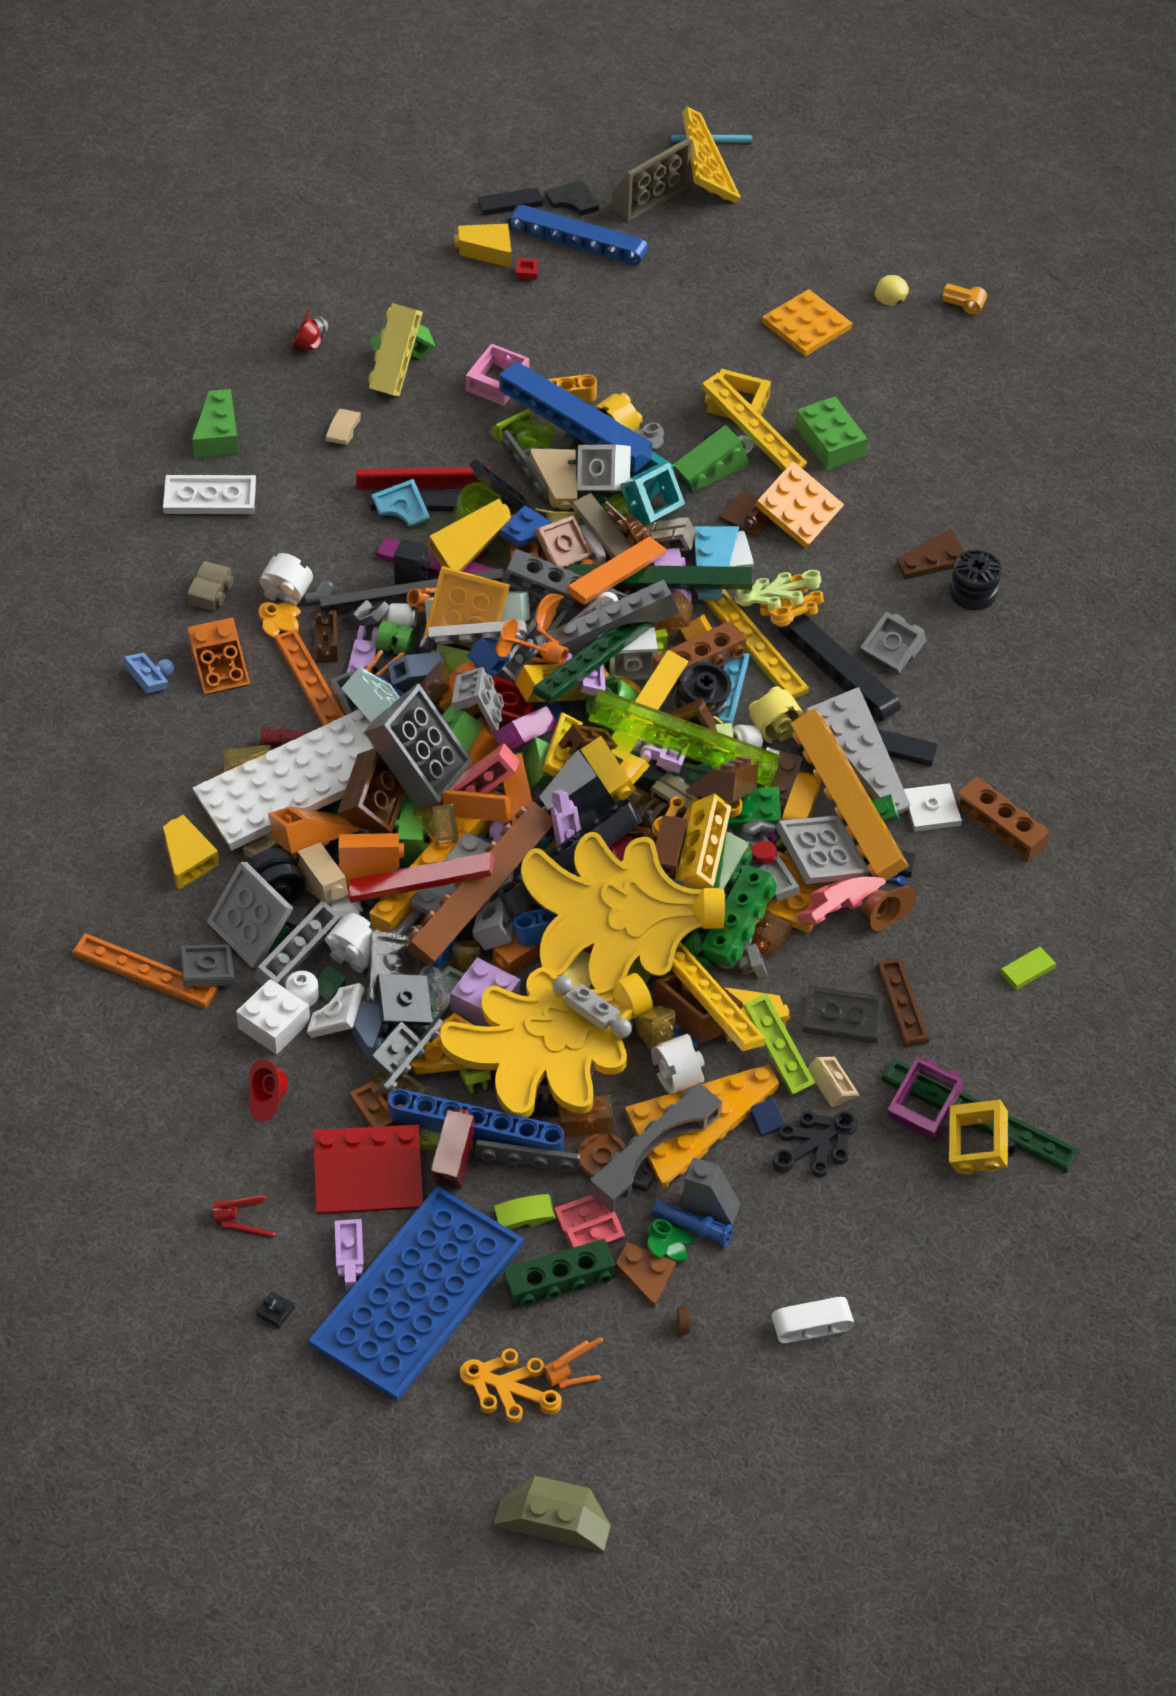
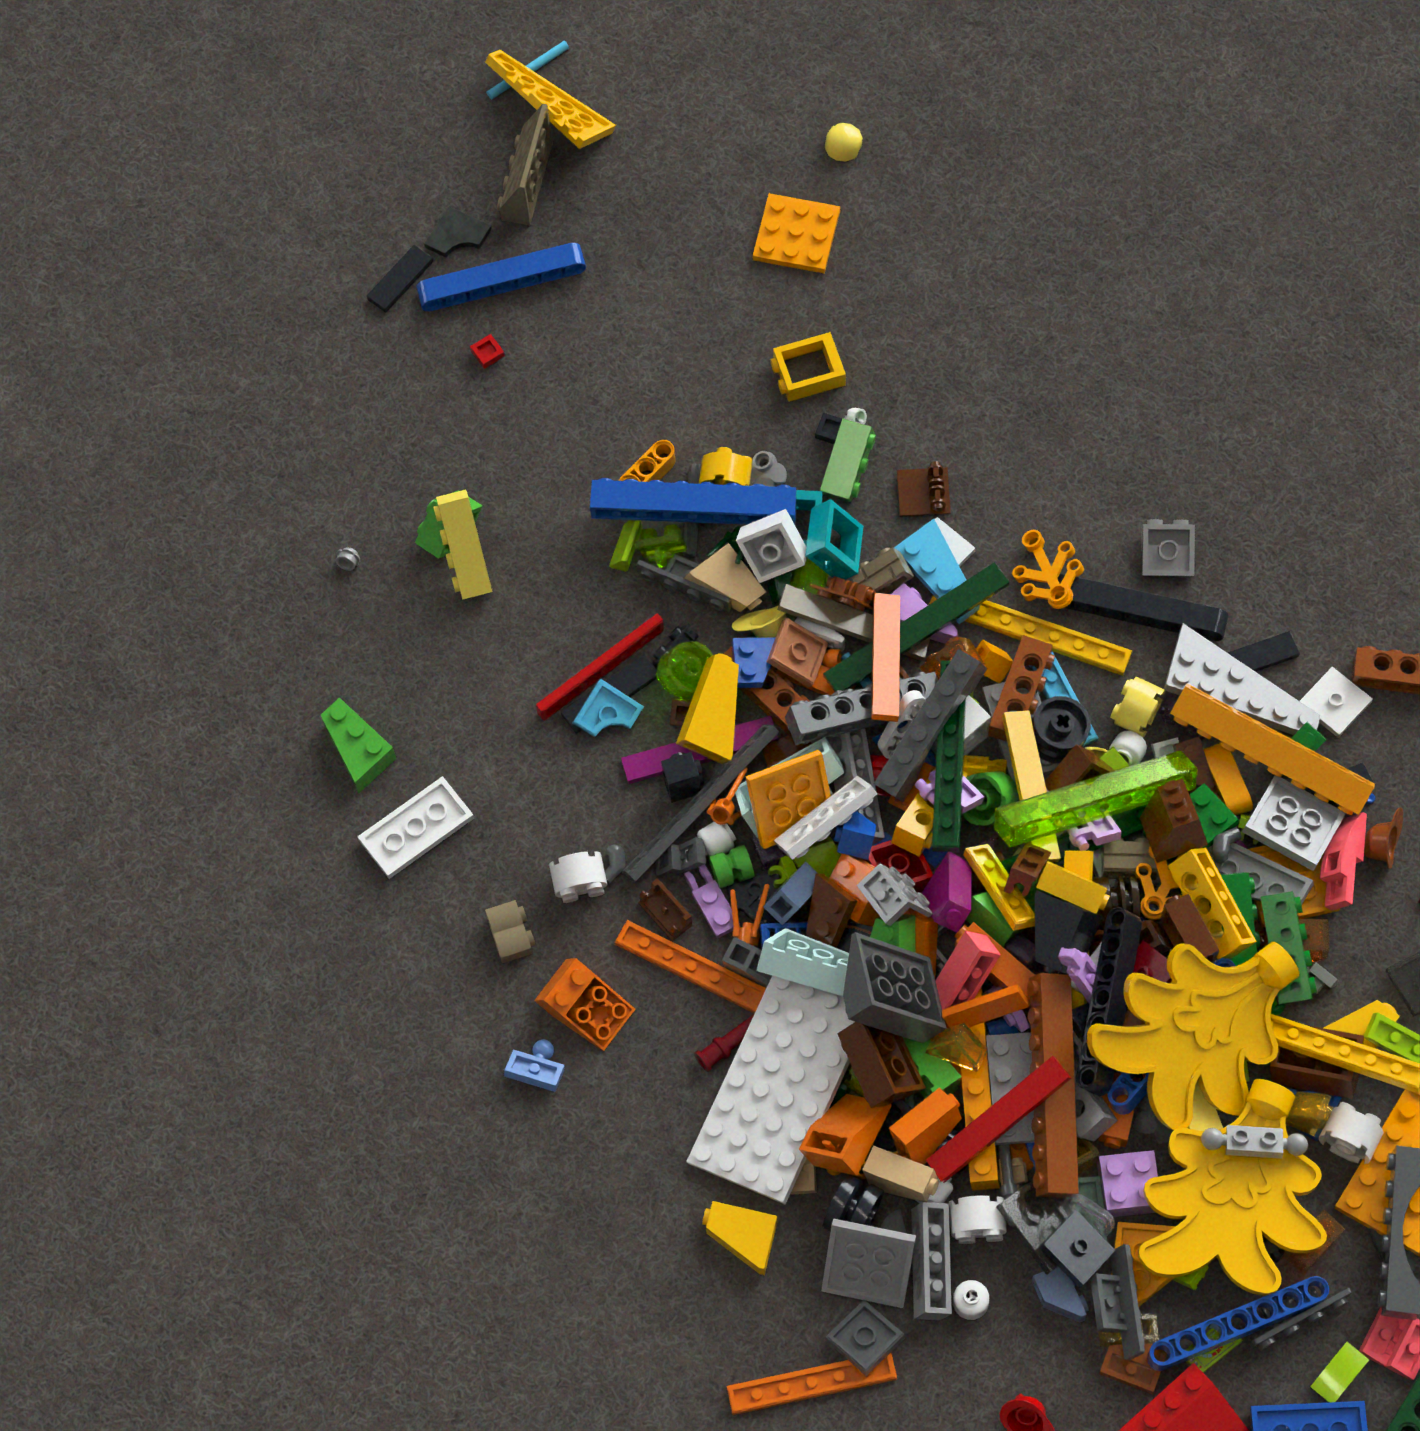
camera: 30 degrees left, 15 degrees up
(235, 757) = (702, 1103): clear yellow slope -> none
(273, 1016) = (970, 1346): white brick -> none
(281, 619) = (605, 919): light orange plate -> none
(308, 334) = (345, 577): red piece -> none
(329, 983) = (986, 1272): dark green slope -> none
(338, 1013) = (1024, 1301): white tile -> none
(343, 426) = (472, 659): tan slope -> none
(453, 1148) = (1248, 1366): slope -> none
(485, 243) = (424, 347): yellow slope -> none
(485, 386) = (571, 518): bright pink window -> none
(498, 485) = (697, 635): black tile -> none
(551, 651) = (908, 793): orange plant -> none
(597, 1151) = (1359, 1274): dark orange tile -> none
(752, 422) = (856, 394): yellow plate -> none
(764, 852) = (1253, 863): red tile -> none
(778, 588) = (1025, 567): yellowish green plant -> none
(799, 504) = (966, 455): light orange plate -> none
(831, 433) = (926, 351): bright green brick -> none
(931, 557) = (1122, 425): reddish brown wing -> none
(970, 300) = (925, 105): light orange piece -> none
(975, 579) = (1187, 430): black wheel -> none

